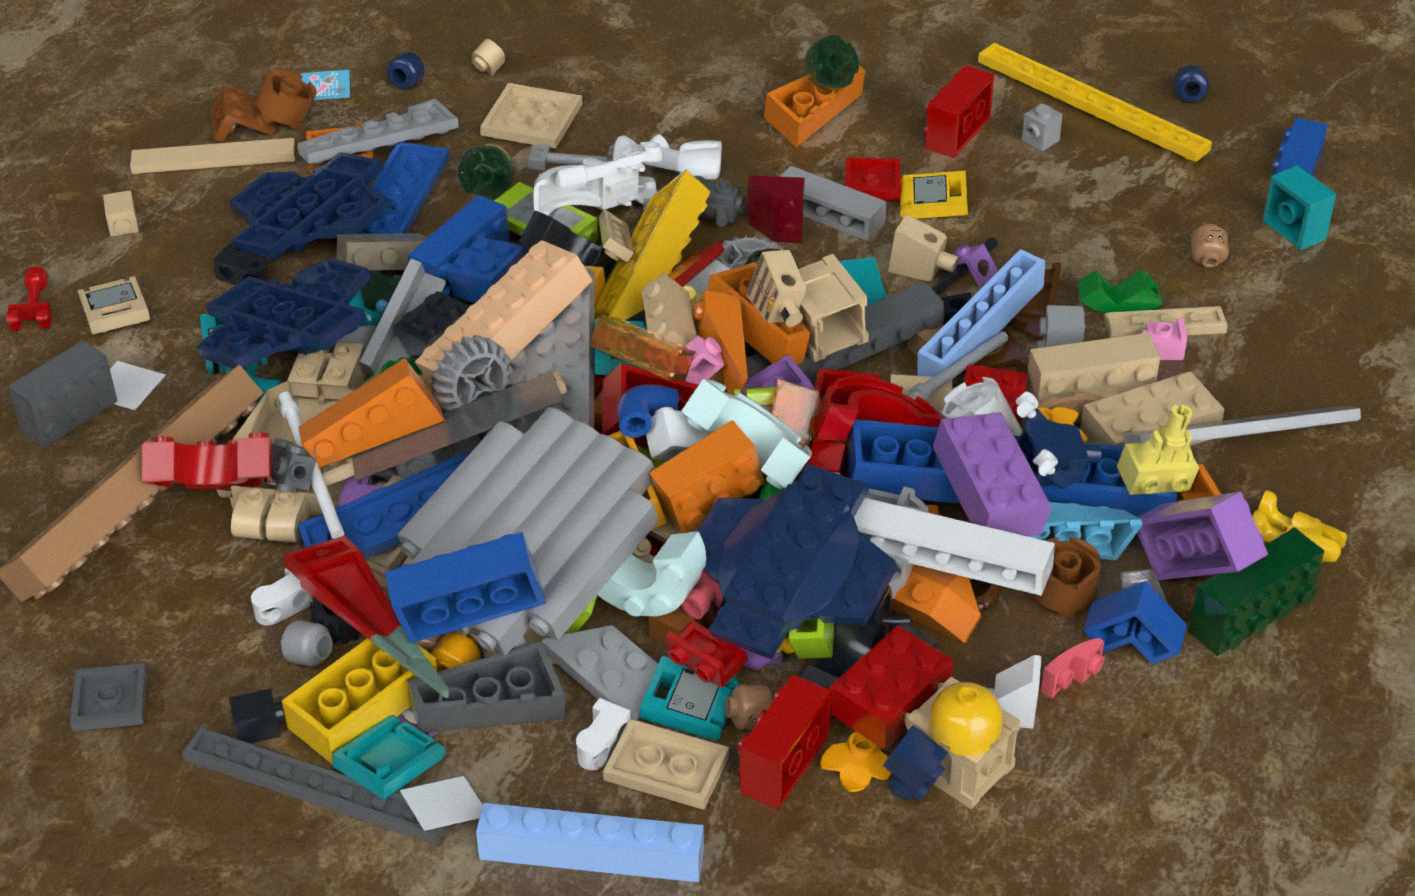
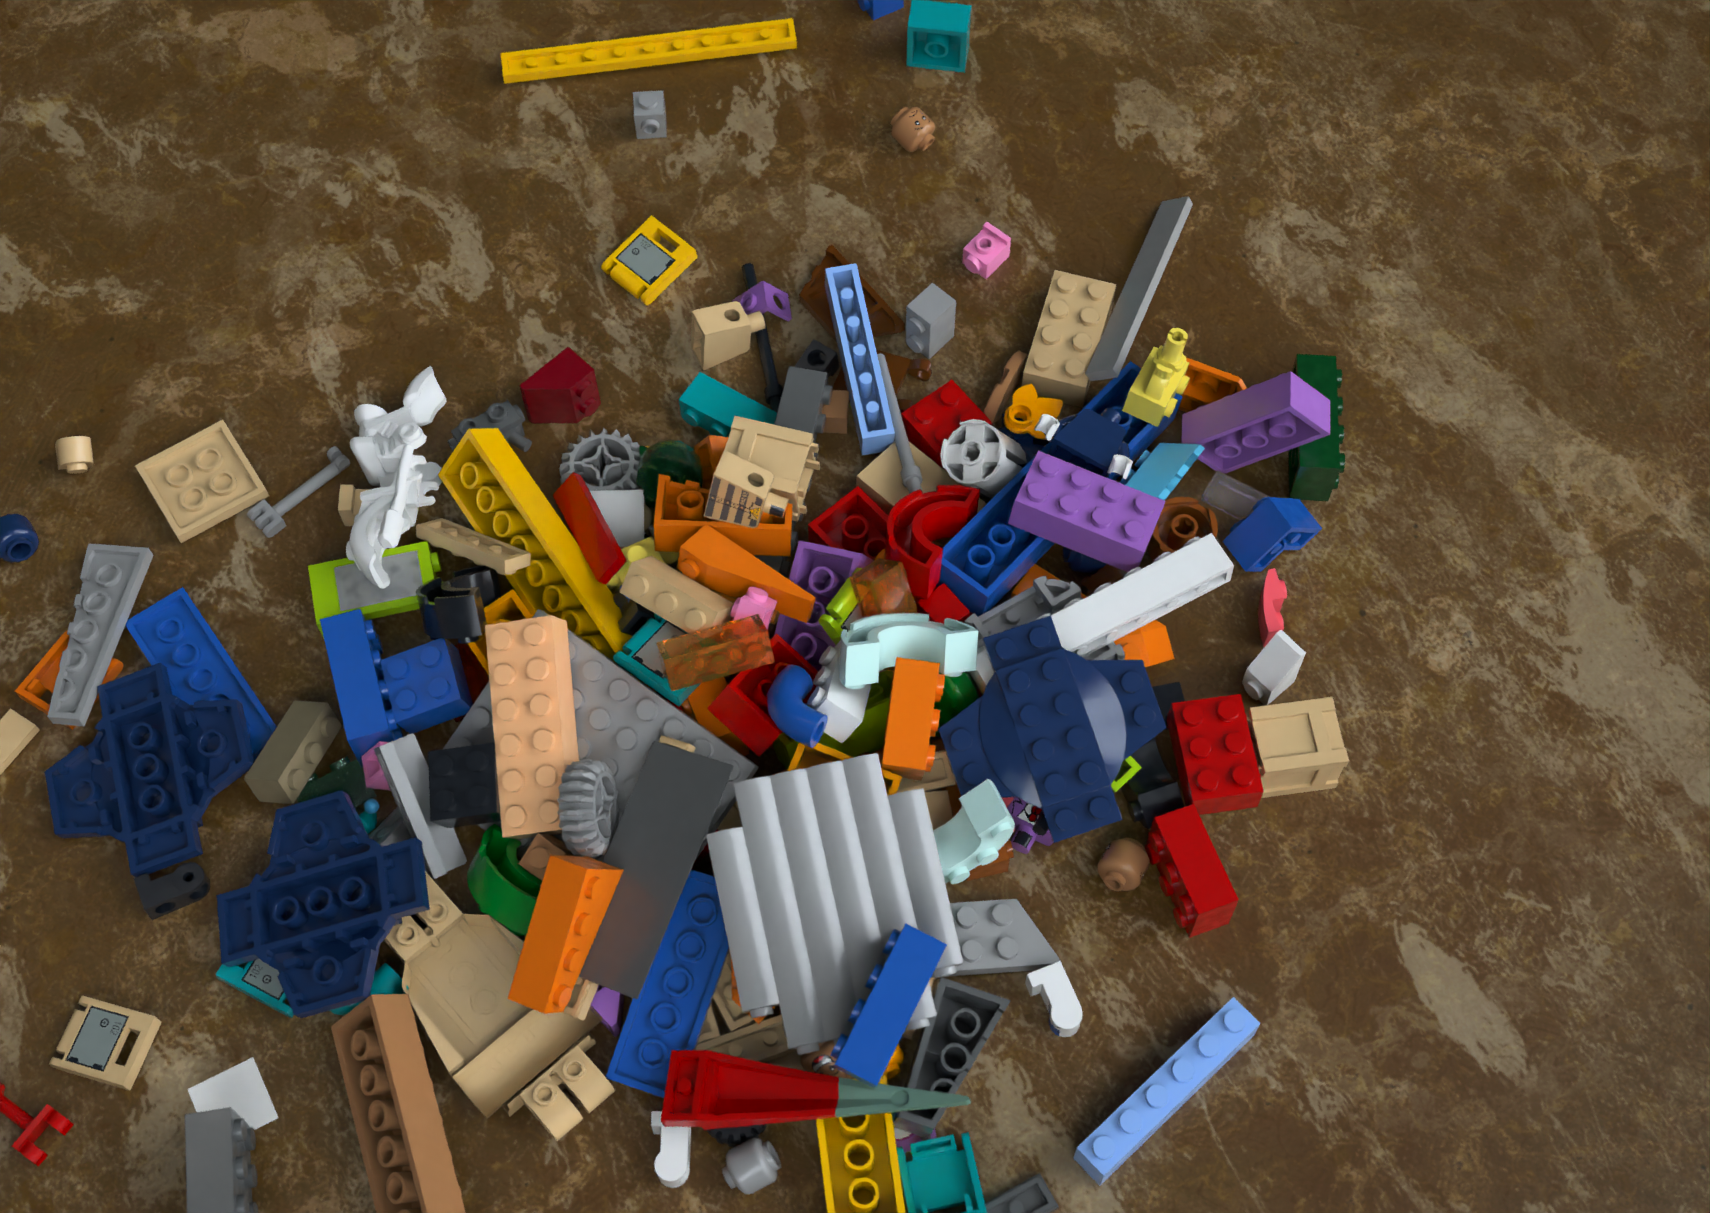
camera: 50 degrees left, 20 degrees up
(208, 465) = (481, 1100): brick -> none
(287, 463) = (539, 1040): dark grey brick -> none
(290, 410) = (462, 987): white bar -> none
(443, 803) = (1028, 1174): white sticker -> none
(486, 171) = (257, 580): clear green cylinder -> none
(666, 764) = (1126, 972): tan plate -> none
(689, 703) = (1077, 900): teal container -> none
(705, 655) = (1041, 860): red bracket -> none
(803, 108) = (435, 254): orange wedge -> none
(831, 63) = (438, 204): clear green cylinder -> none
(840, 205) = (595, 339): light grey brick -> none
(856, 761) = (1238, 833): light orange plate -> none
(874, 176) = (581, 287): red plate -> none
(914, 765) = (1295, 798): dark blue brick -> none
(959, 111) = (573, 156): red brick -> none
(966, 719) = (1310, 735): yellow cylinder -> none
(1093, 367) = (994, 334): tan brick -> none
(1133, 294) = (909, 236): green brick -> none
(1197, 320) = (959, 231): tan tile -> none
(1274, 524) = (1271, 343): yellow piece -> none

